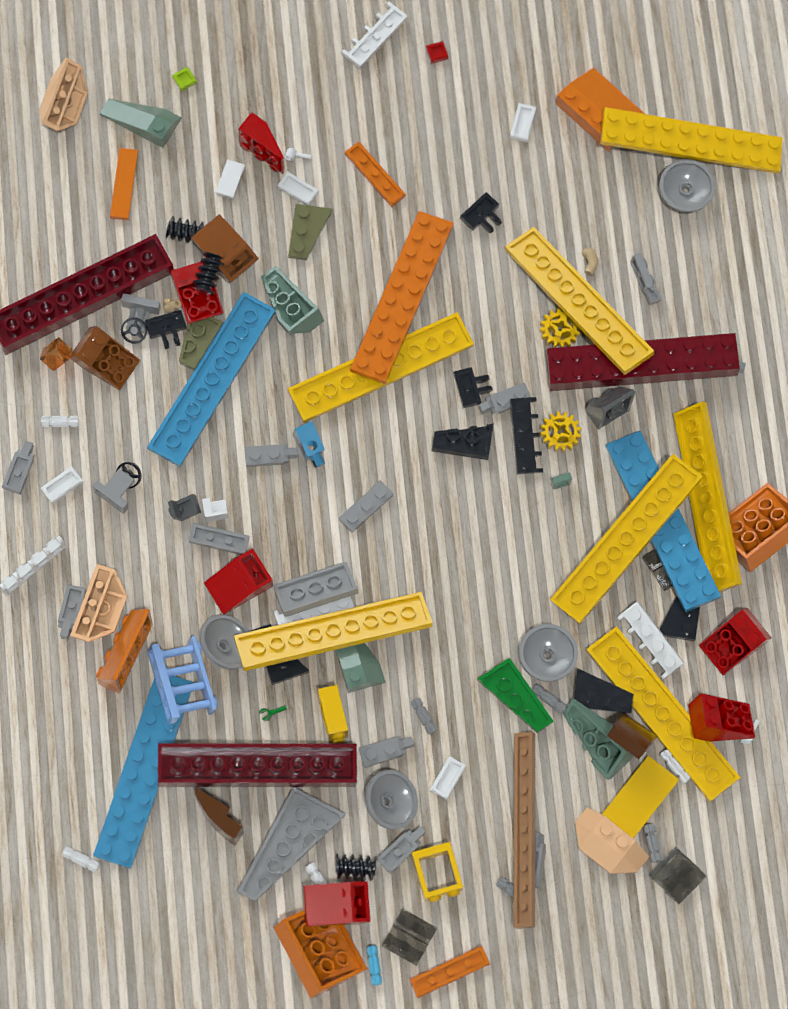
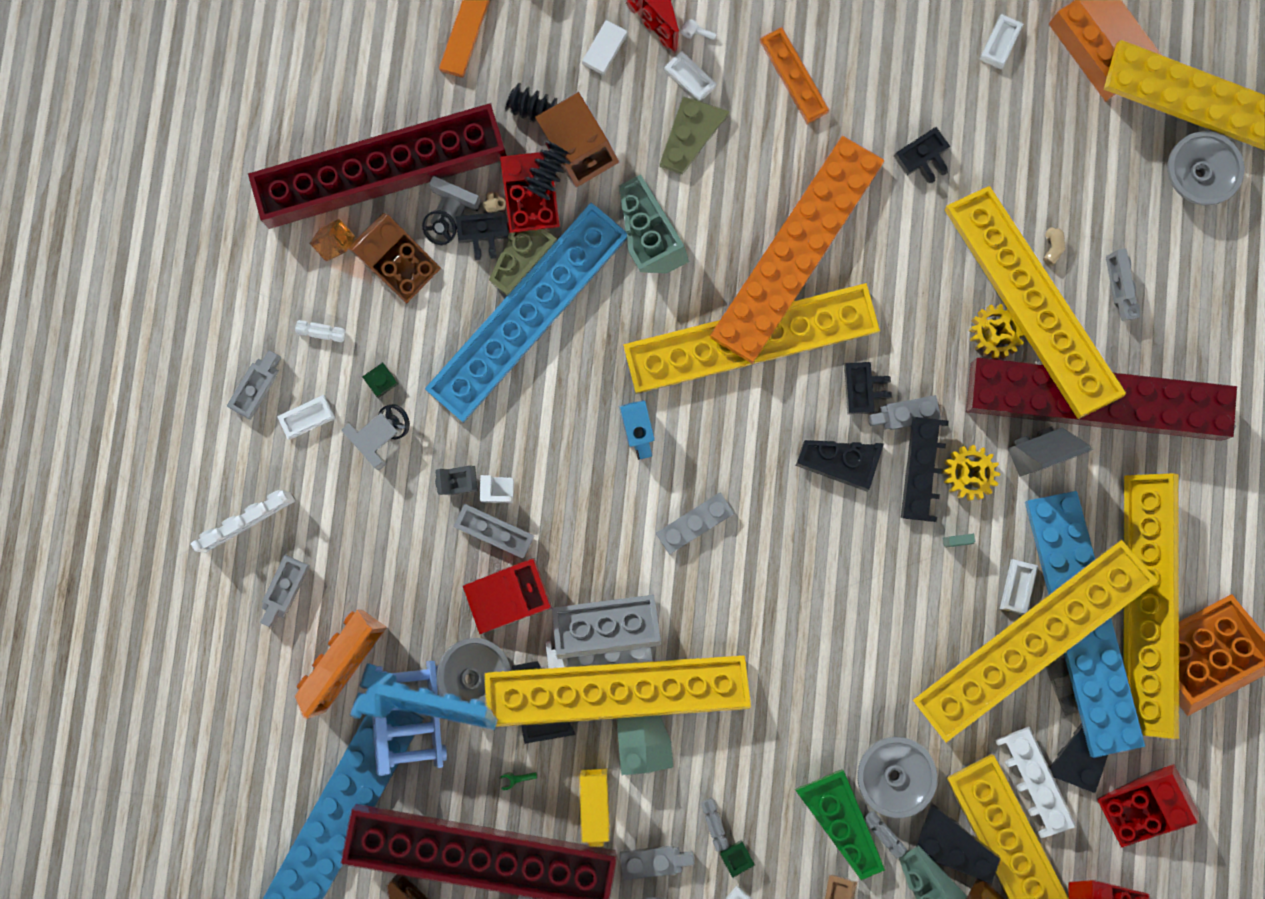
camera: 15 degrees right, 10 degrees up
(100, 606) = (318, 597): light nougat wedge -> none
(111, 448) = (380, 380): none -> dark green plate
(195, 657) = (385, 694): none -> dark azure hinge
(269, 455) = (581, 429): light grey hinge -> none
(444, 735) = (737, 859): none -> dark green plate
(612, 505) = (1018, 587): none -> white tile

